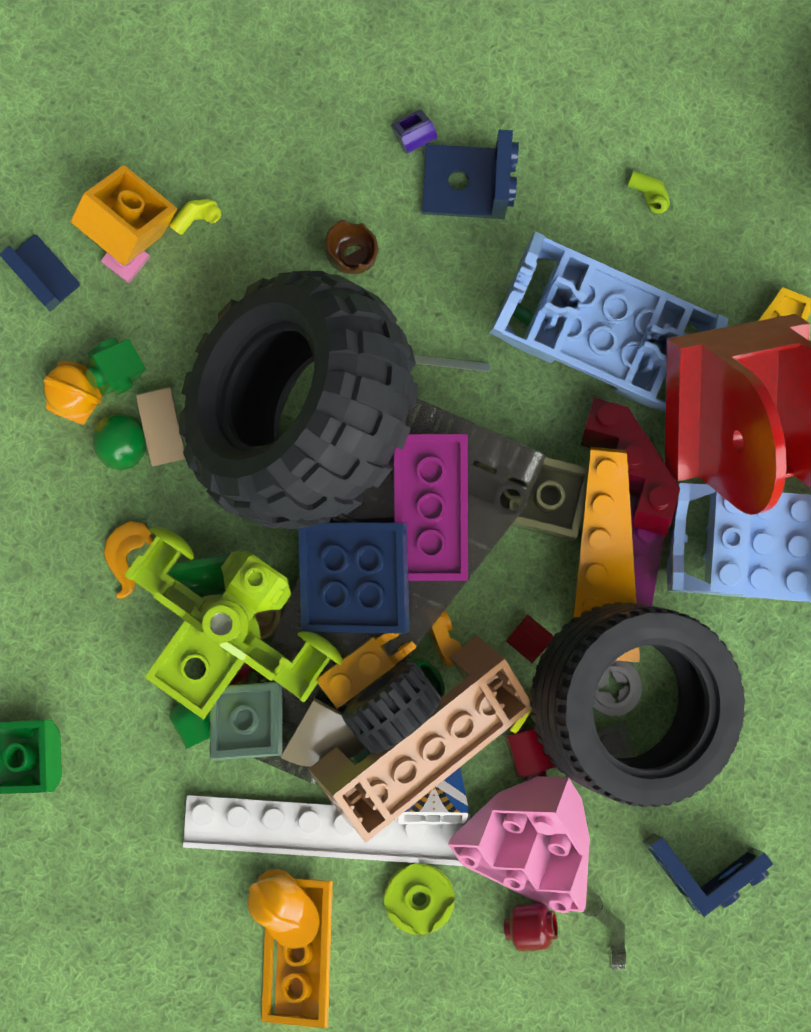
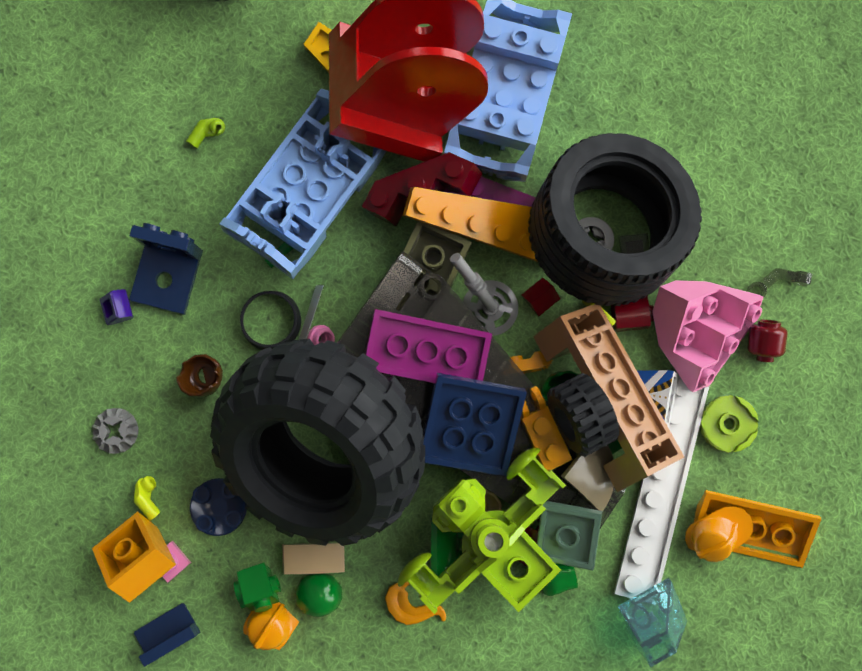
camera: 70 degrees left, 0 degrees up
(164, 848) = (655, 621): none -> clear light blue slope
(196, 299) = (216, 509): none -> dark blue dish
(271, 176) = (127, 428): none -> light grey gear
(426, 389) = (323, 331): none -> bright pink plate
(435, 349) = (297, 320): none -> black tyre
(510, 571) = (486, 291): none -> light grey dish
(720, 889) = (763, 184): dark blue bracket -> none

